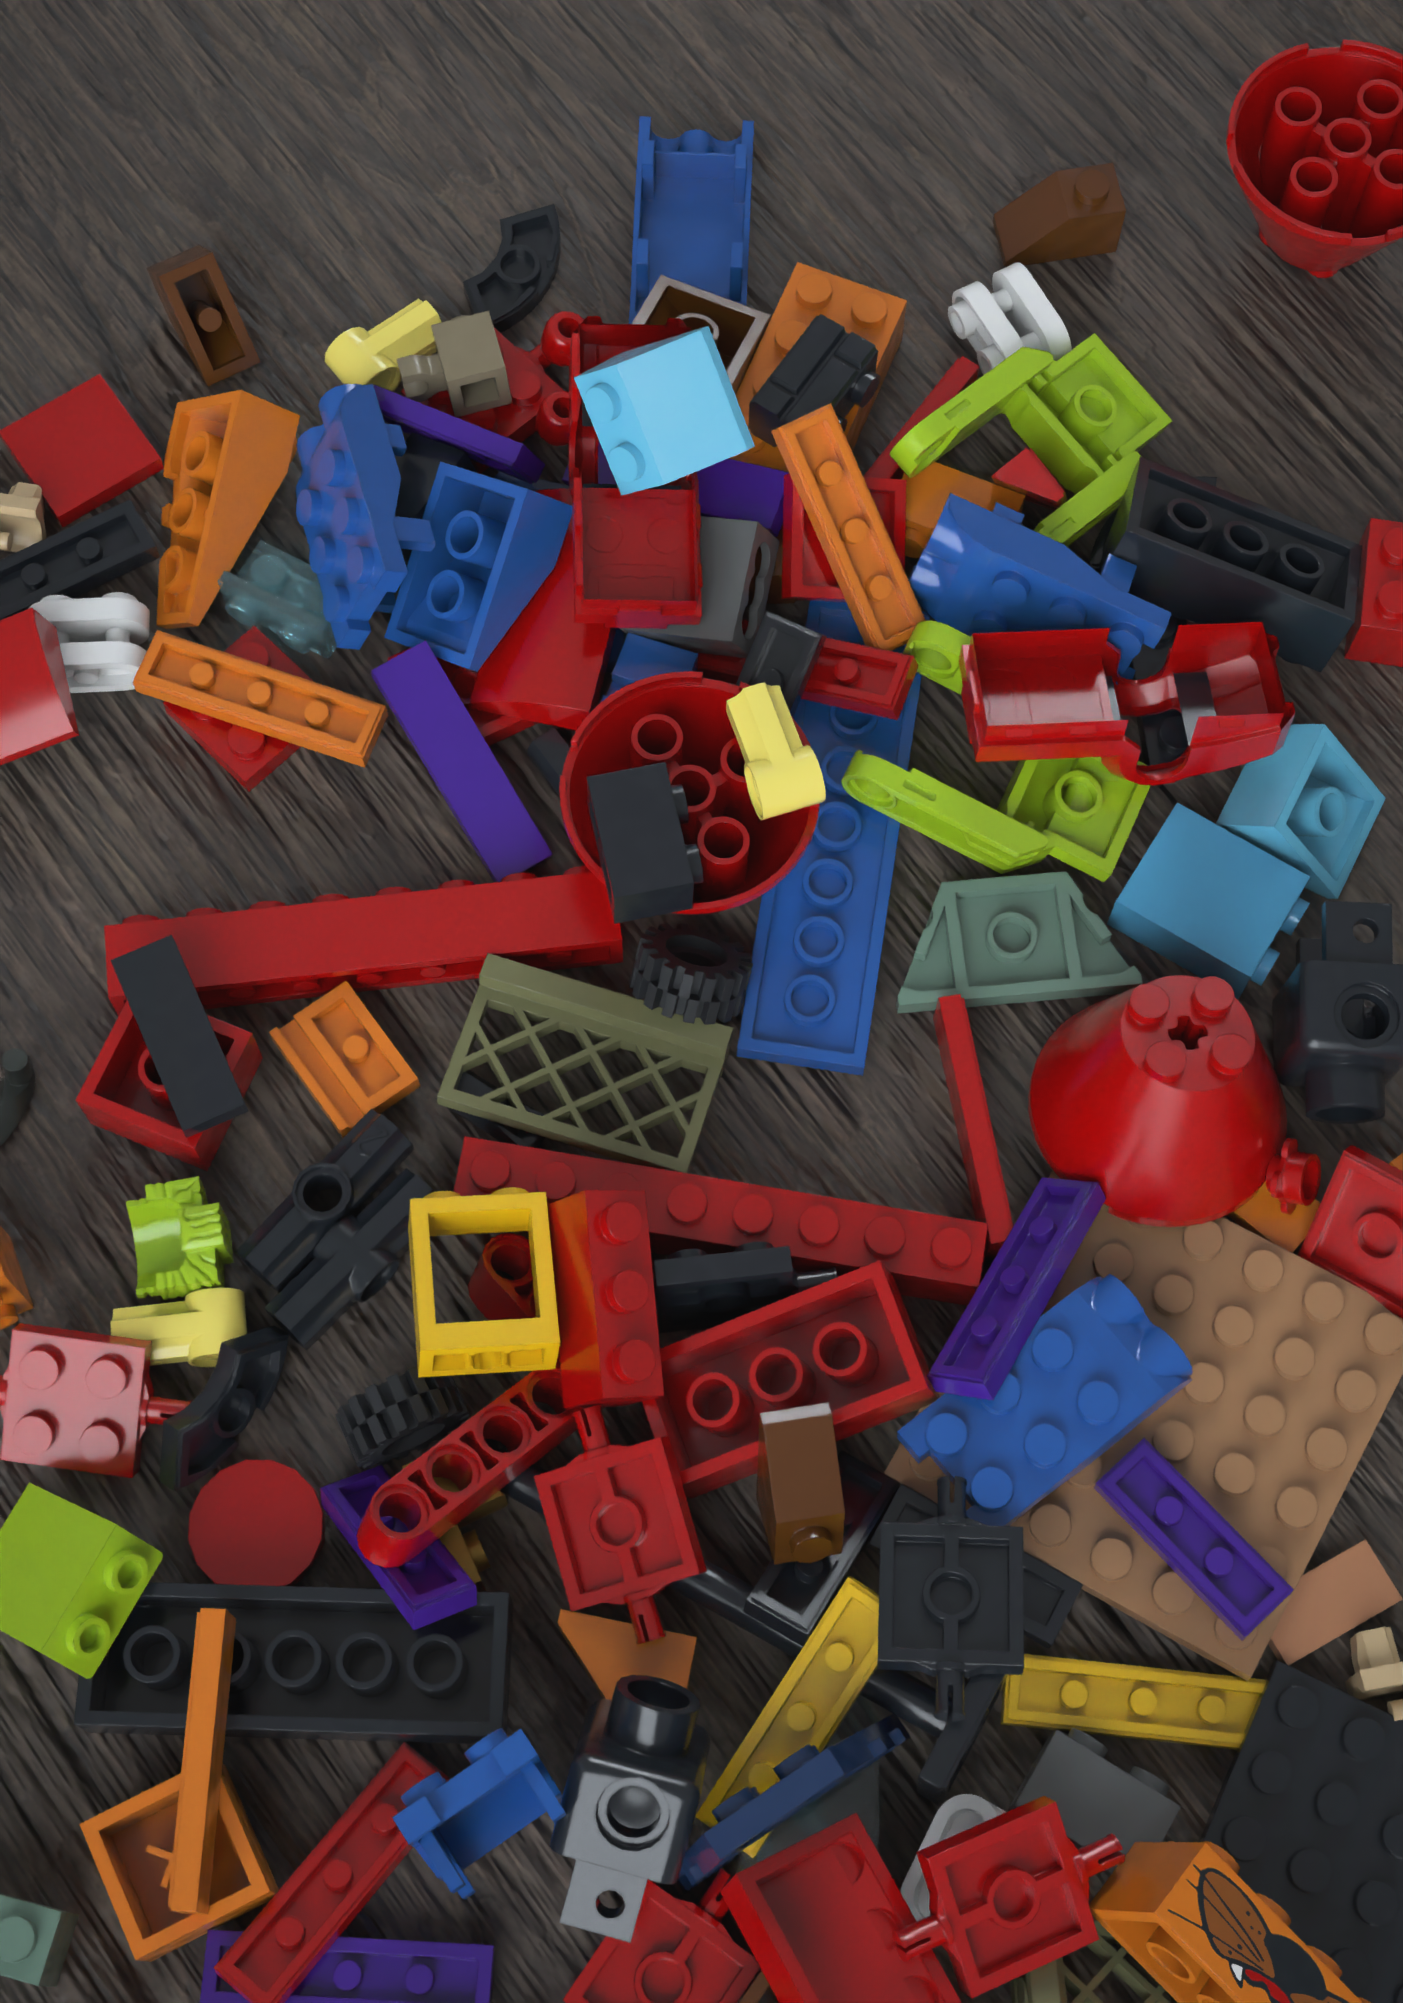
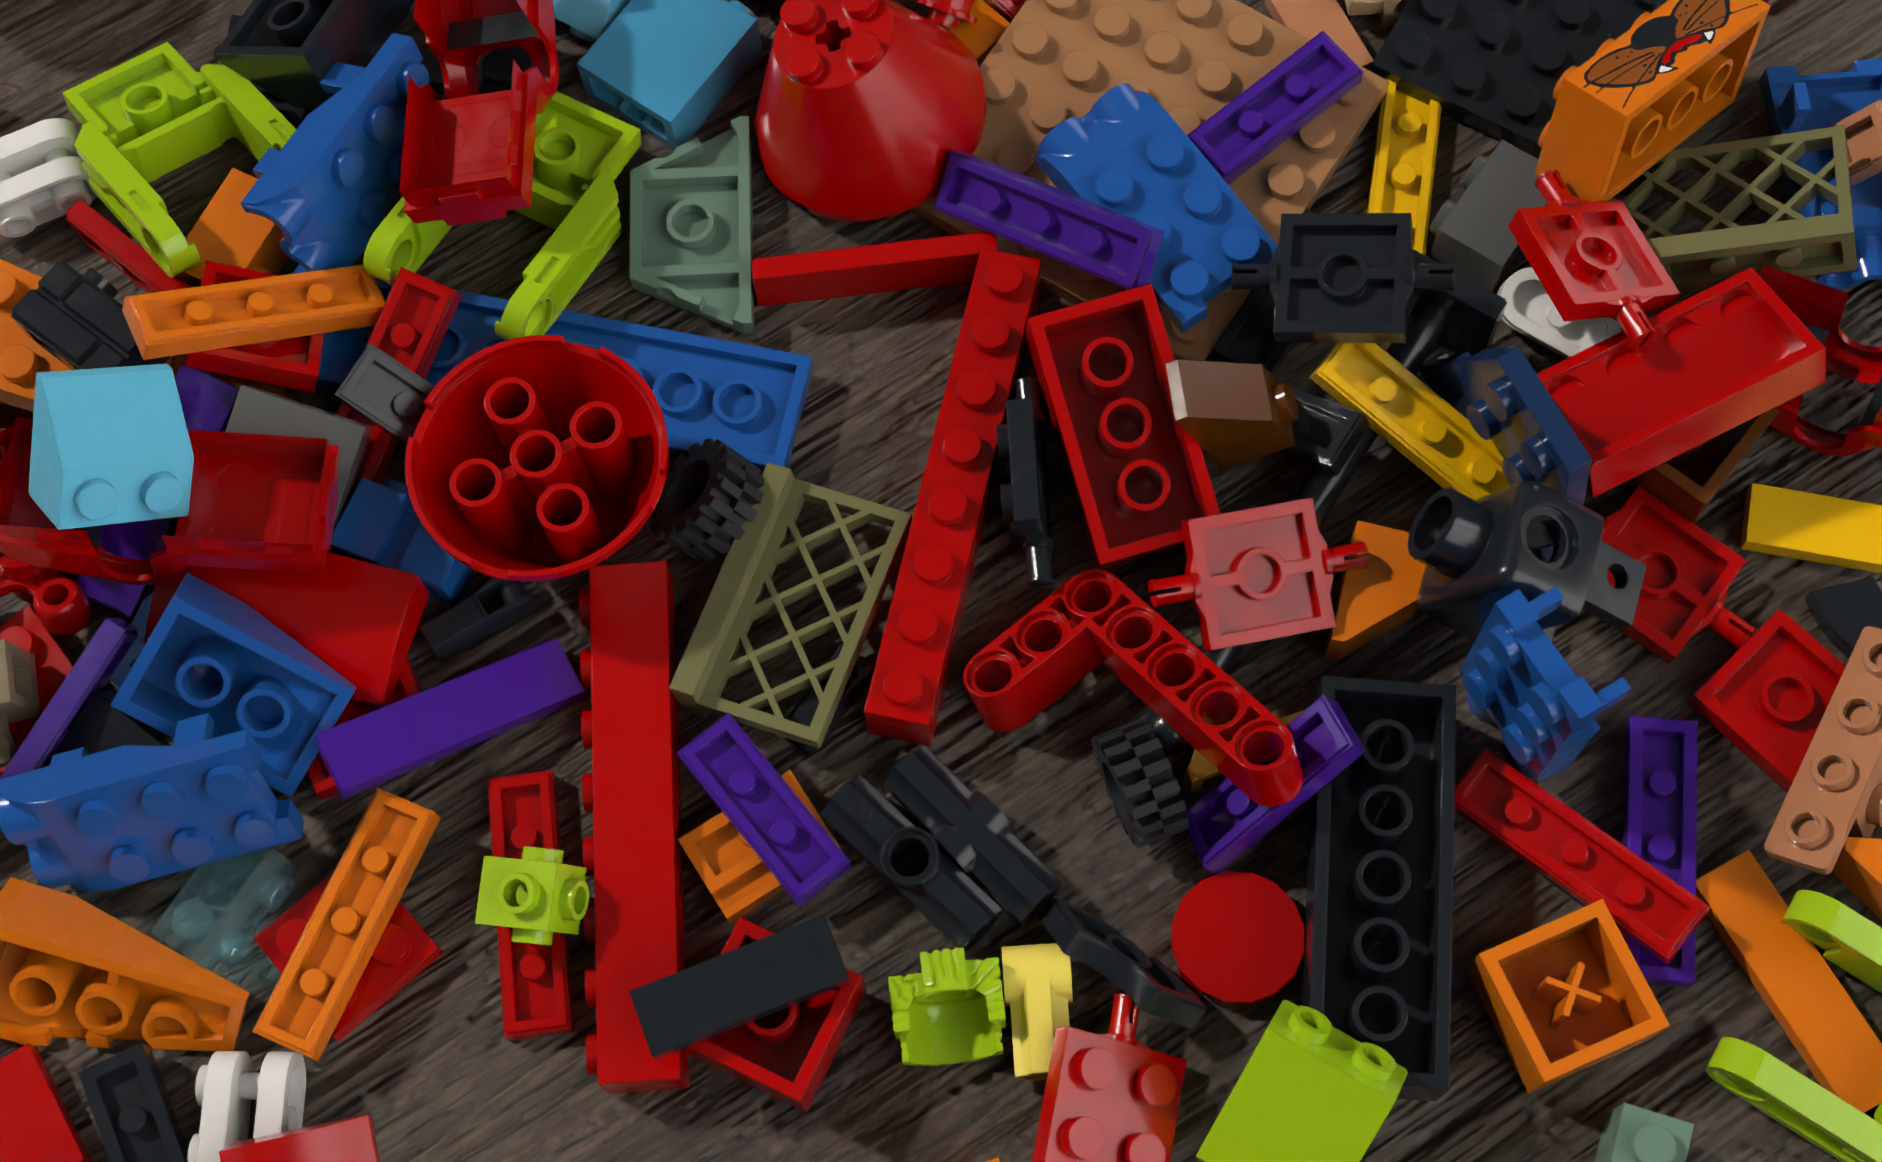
camera: 80 degrees left, 0 degrees up
(202, 1762) = (1492, 949): orange tile -> none
(278, 849) = (532, 895): none -> lime brick
(291, 860) = (532, 976): none -> red tile
(372, 1055) = (764, 810): none -> dark purple tile
(490, 1344) = (1027, 736): yellow window -> none
(605, 1299) = (1051, 566): red brick -> none
(642, 842) = (598, 488): black brick -> none
(777, 766) = (532, 360): light yellow piece -> none
(1031, 478) = (217, 154): red slope -> none

